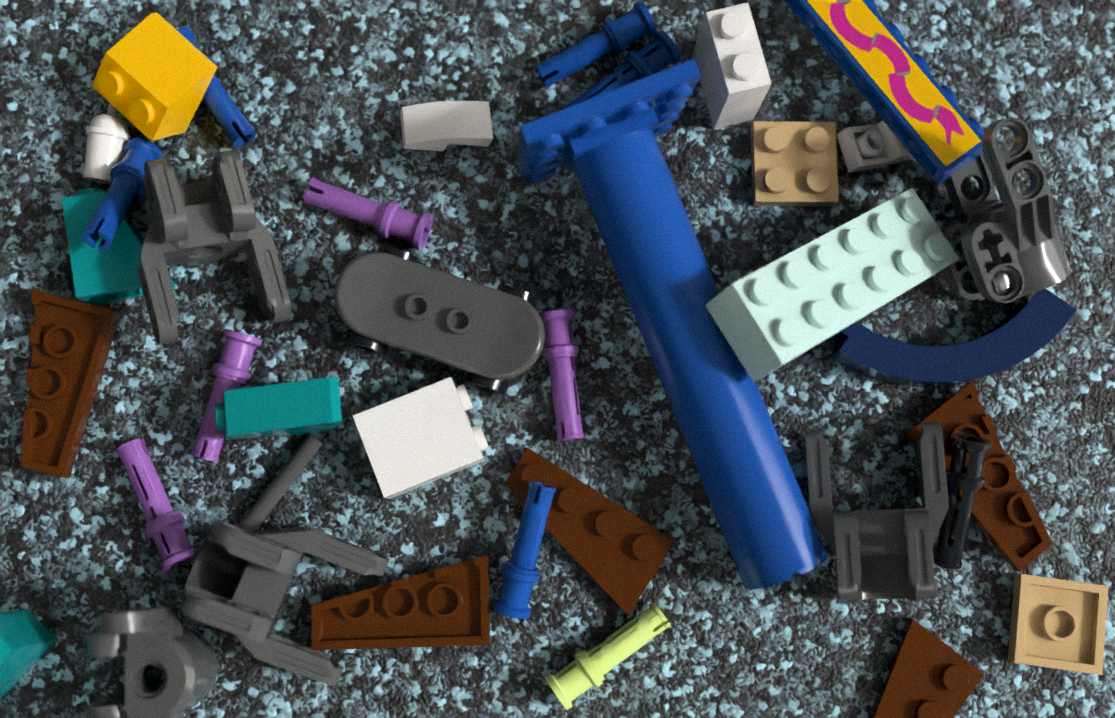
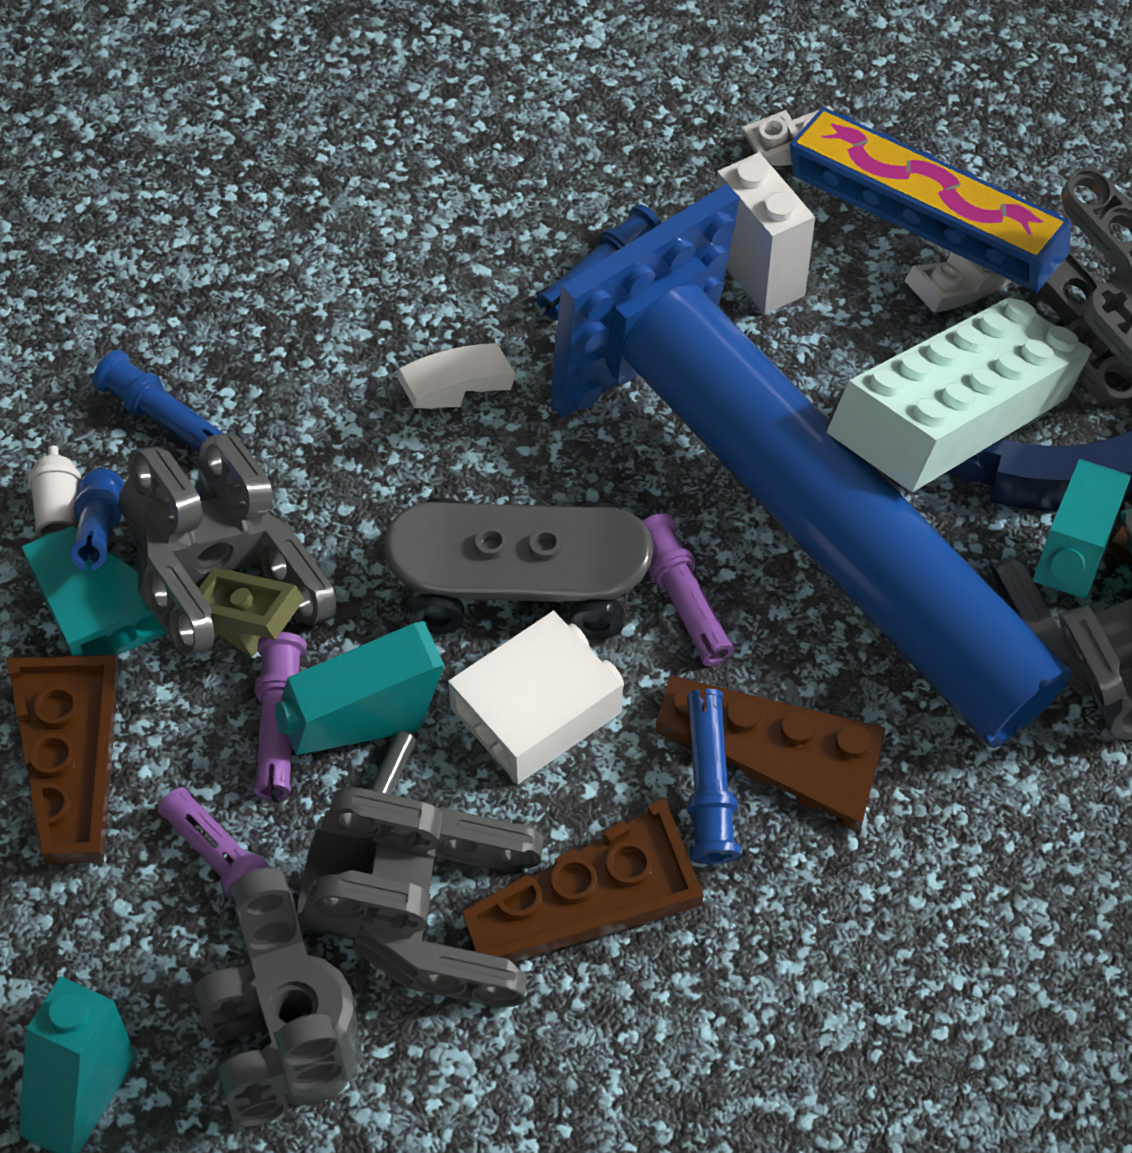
camera: 10 degrees left, 25 degrees down
(155, 78) = (101, 399): yellow slope -> none
(218, 299) = (249, 606): none -> olive slope
(386, 218) = (413, 484): medium lavender pin -> none
(591, 666) = (838, 892): yellowish green pin -> none
(794, 164) = (866, 320): tan plate -> none
(882, 435) = (1081, 529): none -> teal slope

